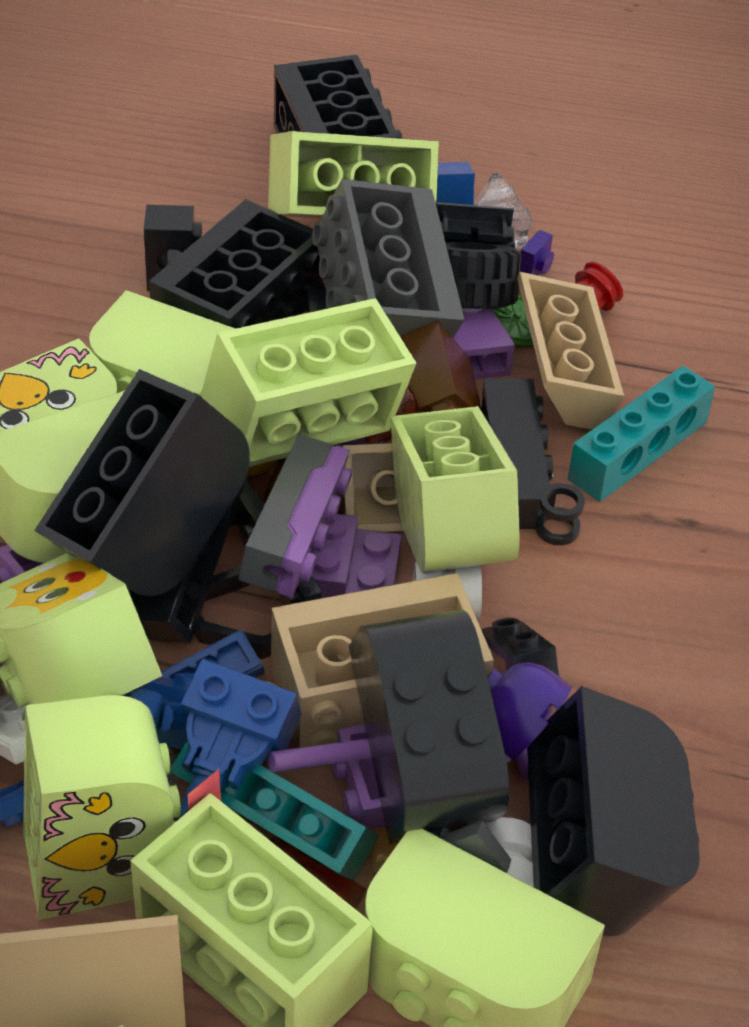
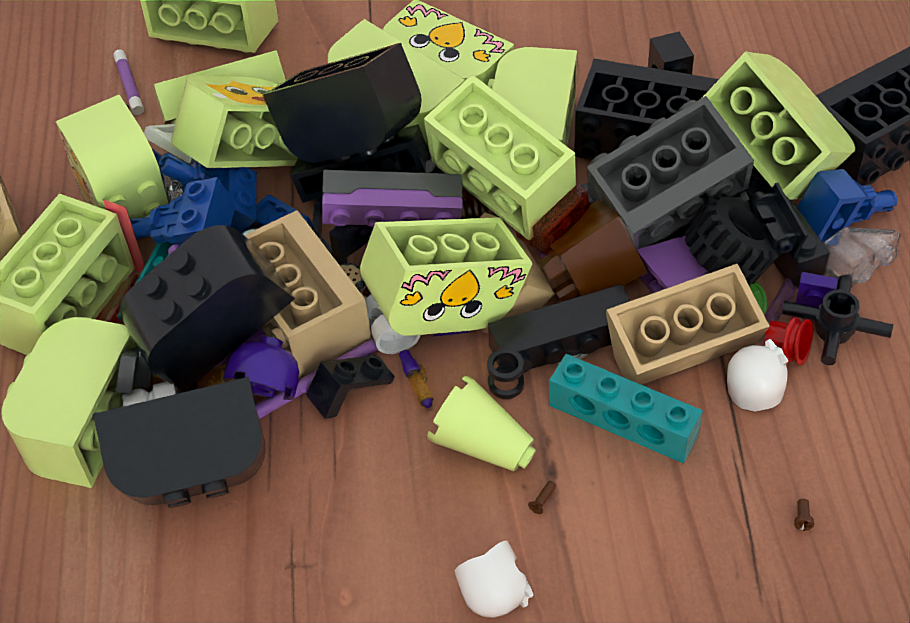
camera: 80 degrees right, 5 degrees up
(525, 598) = (417, 378): none -> piece
(575, 248) = (837, 319): none -> black bar
(632, 551) = (481, 428): none -> yellowish green cone
(635, 325) = (757, 377): none -> white helmet
(737, 541) = (536, 506): none -> reddish brown piece

